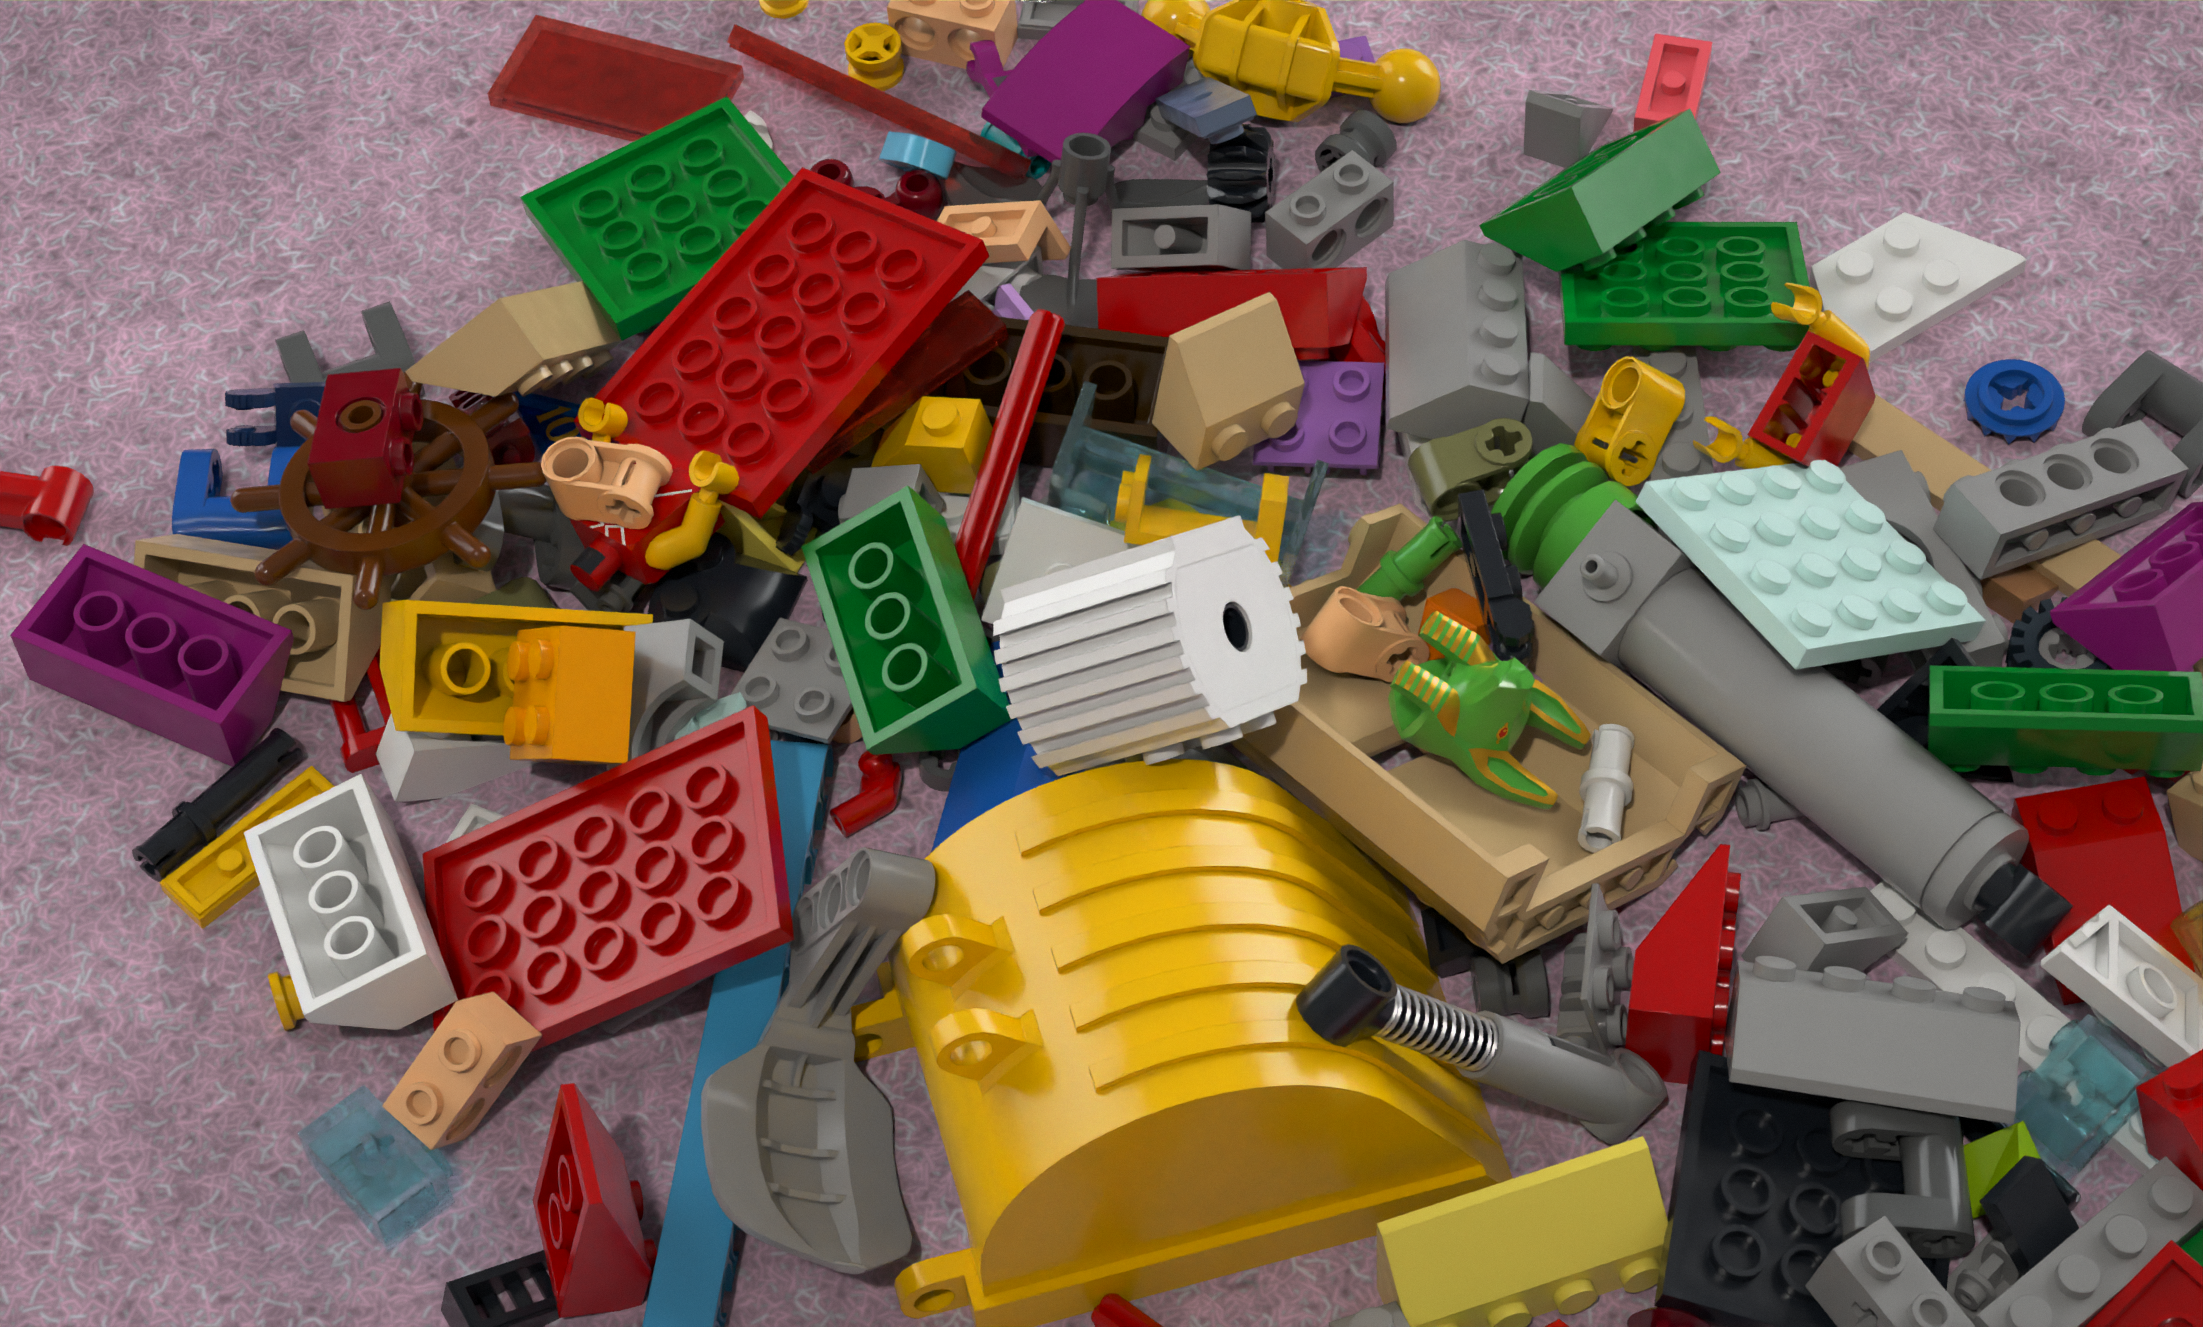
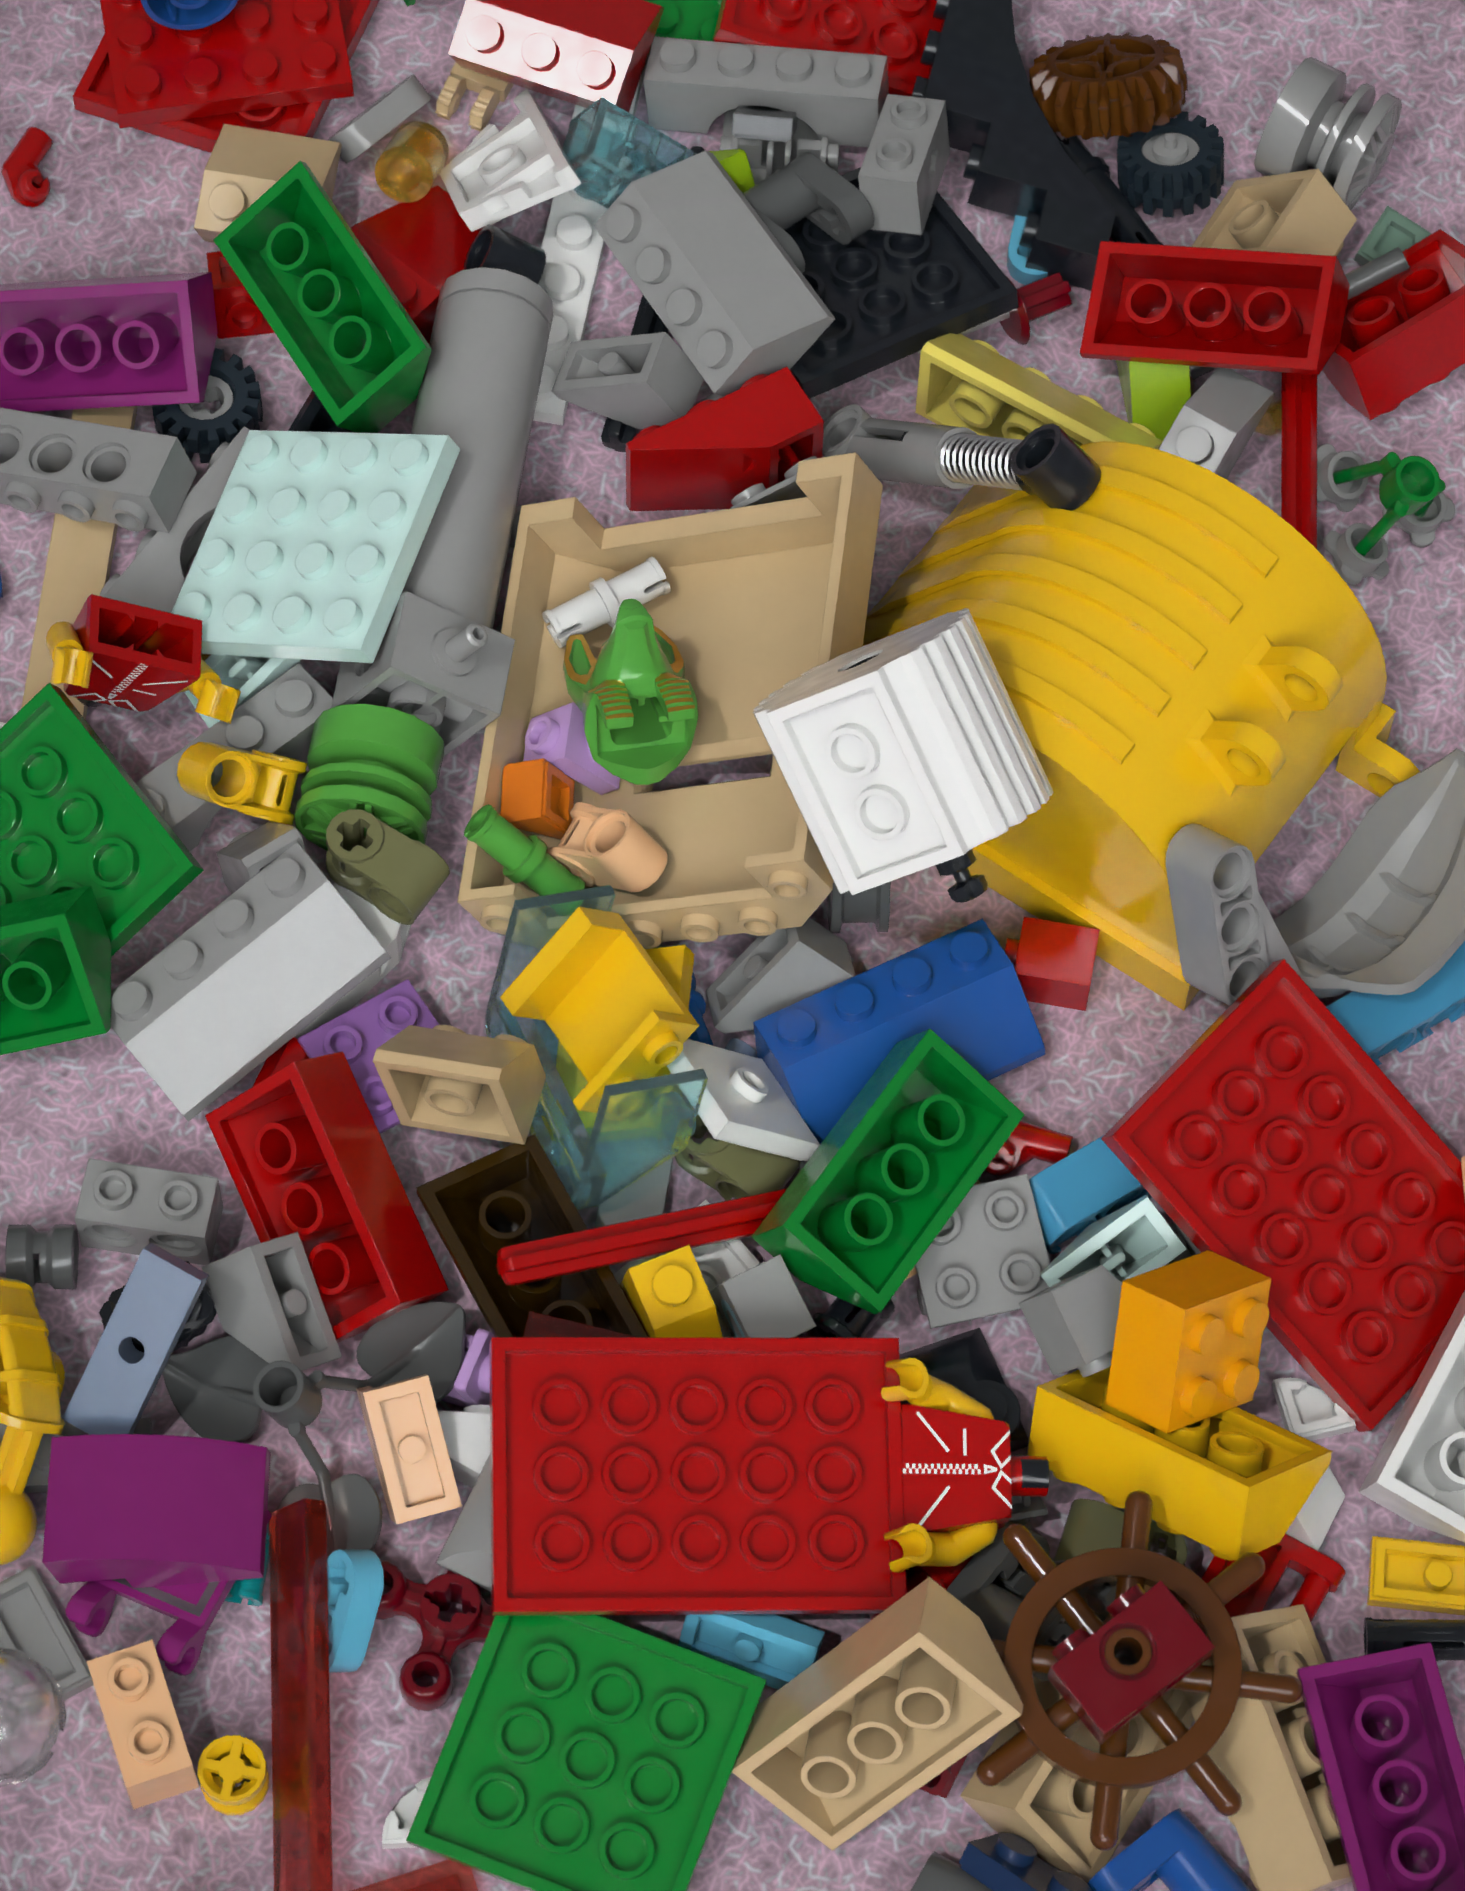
camera: 135 degrees left, 10 degrees up
(601, 481) = (972, 1459): light nougat piece -> none
(1496, 586) = (502, 754): black hinge -> none

